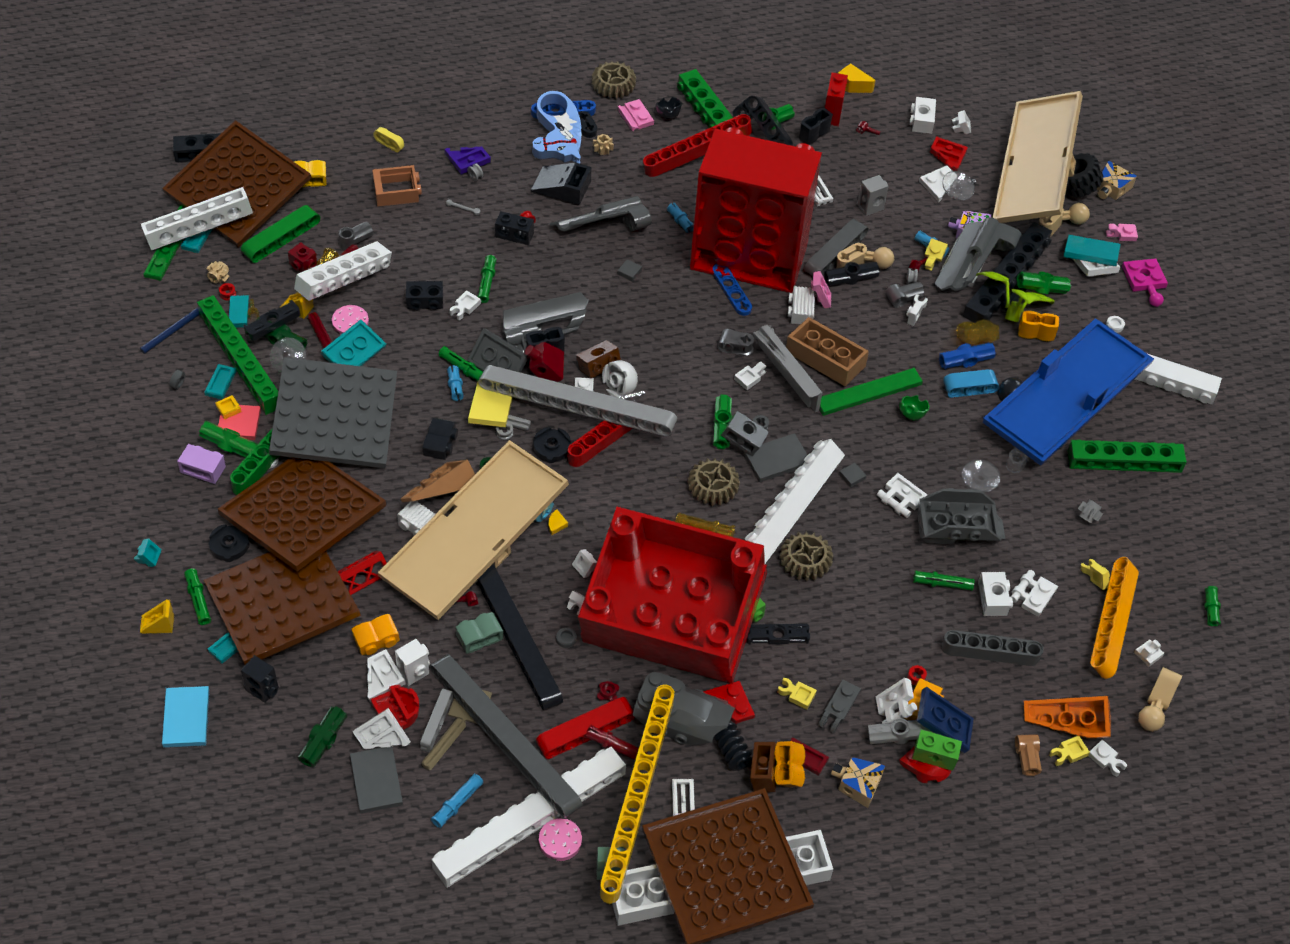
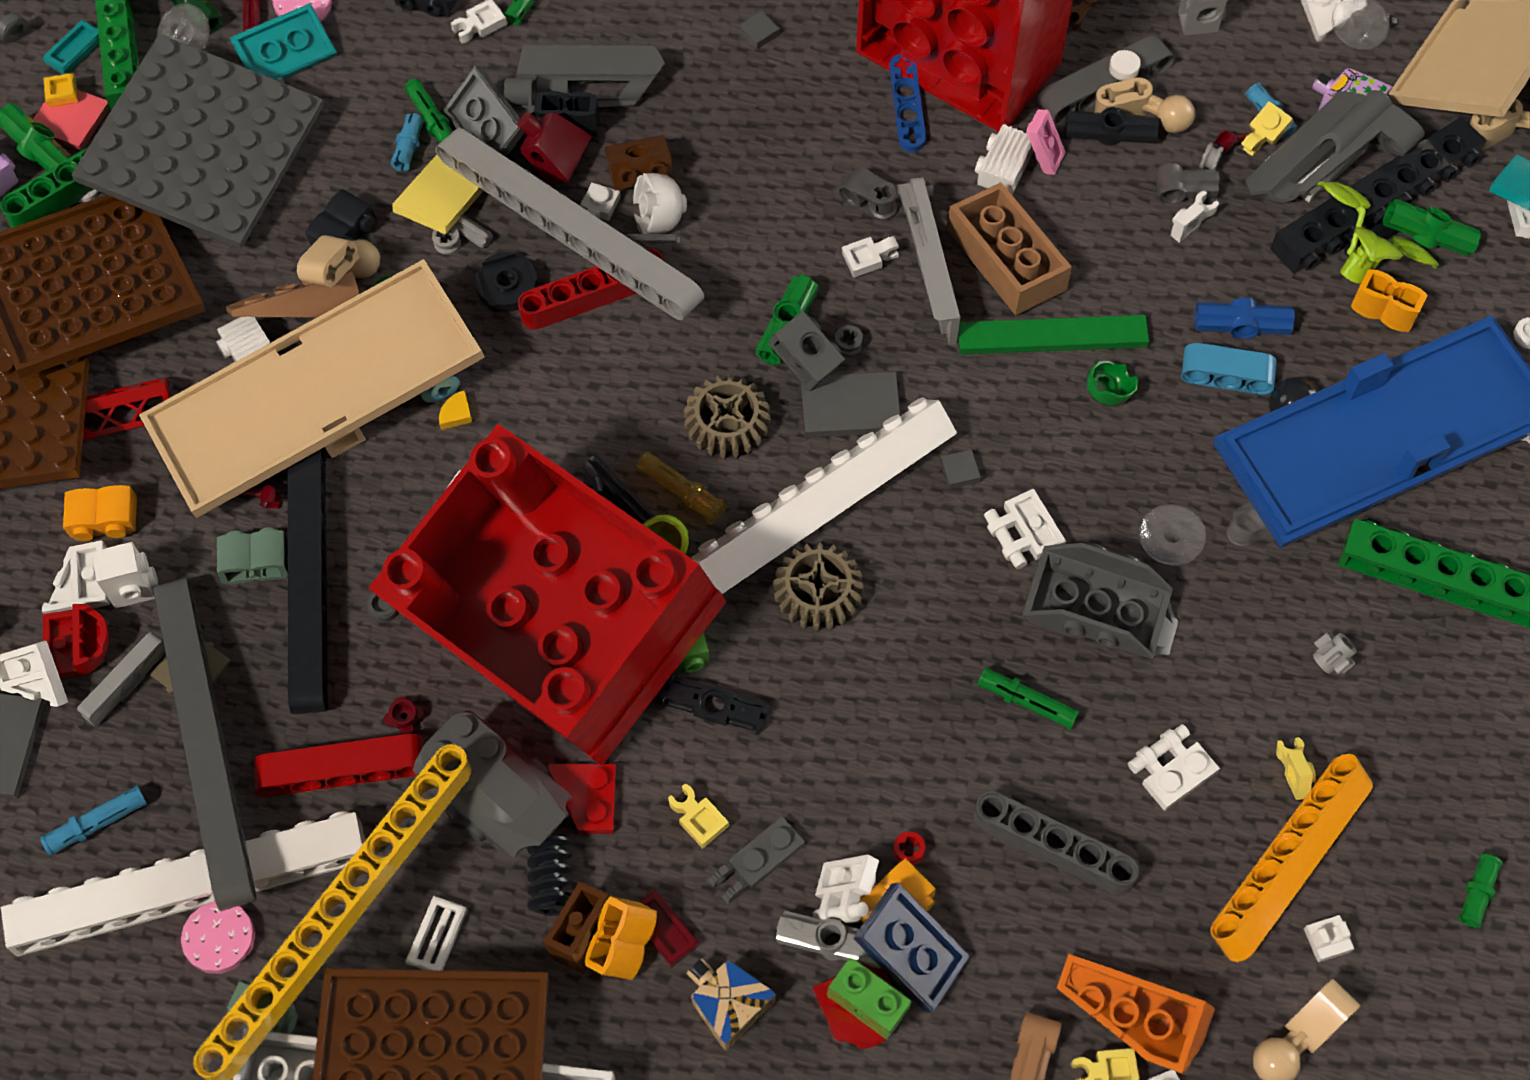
camera: 25 degrees right, 10 degrees up
(443, 744) = (119, 720): dark tan axle -> none
(454, 455) = (333, 257): none -> tan beam
(608, 740) = (355, 798): dark red pin -> none
(846, 238) = (1124, 65): none -> white tile
(980, 331) = (1271, 282): clear yellow brick -> none
(991, 603) = (1103, 729): white brick -> none

